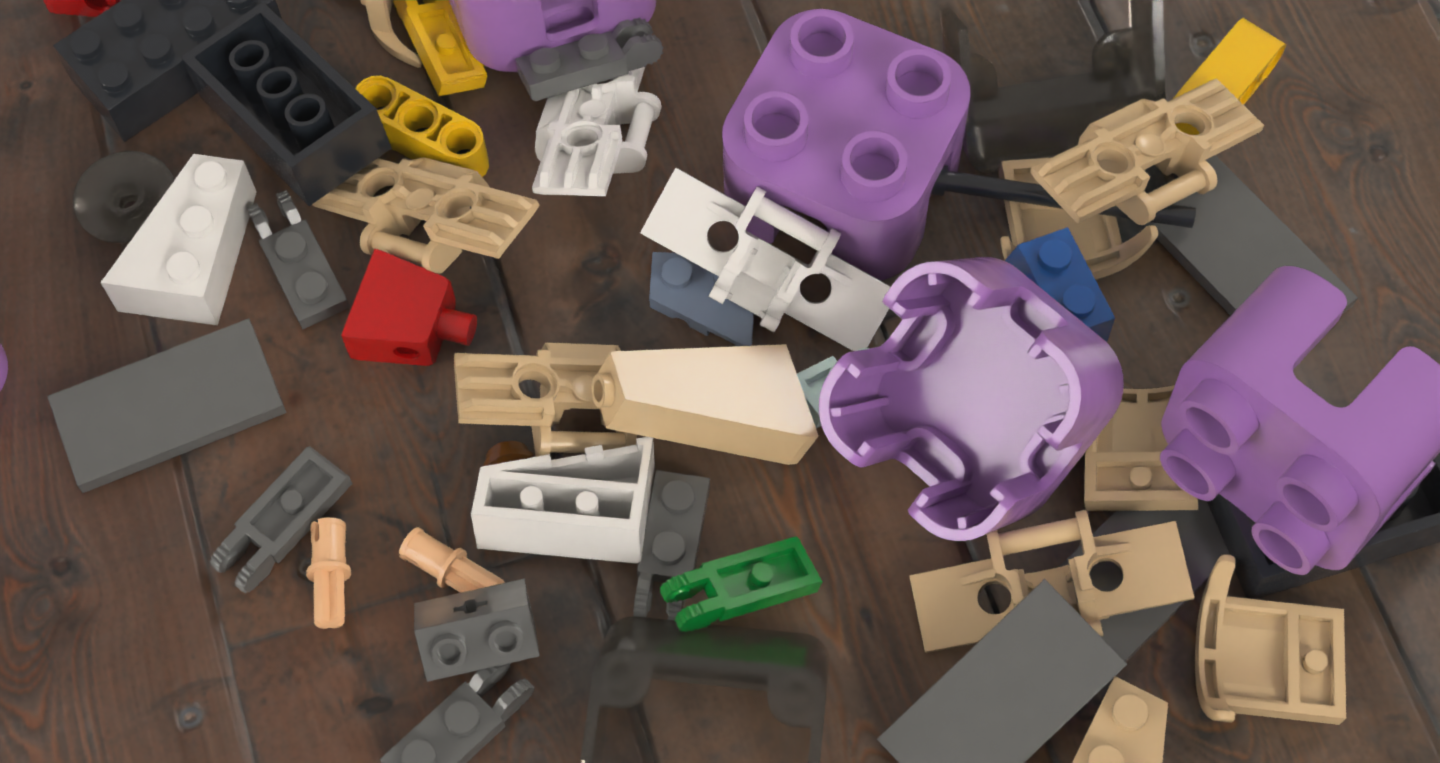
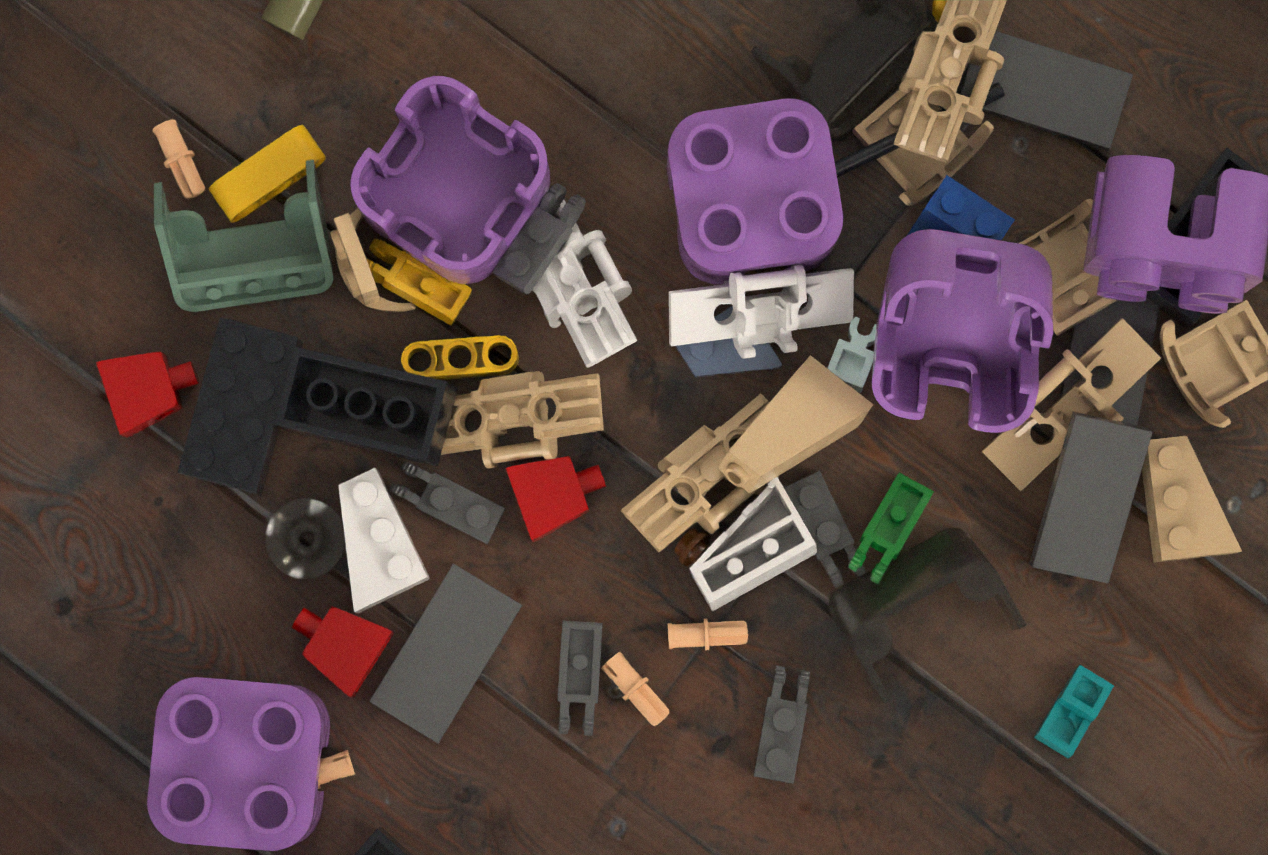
camera: 40 degrees left, 20 degrees up
(67, 325) = (342, 646): none -> red torso
(475, 630) = (756, 664): dark grey brick -> none

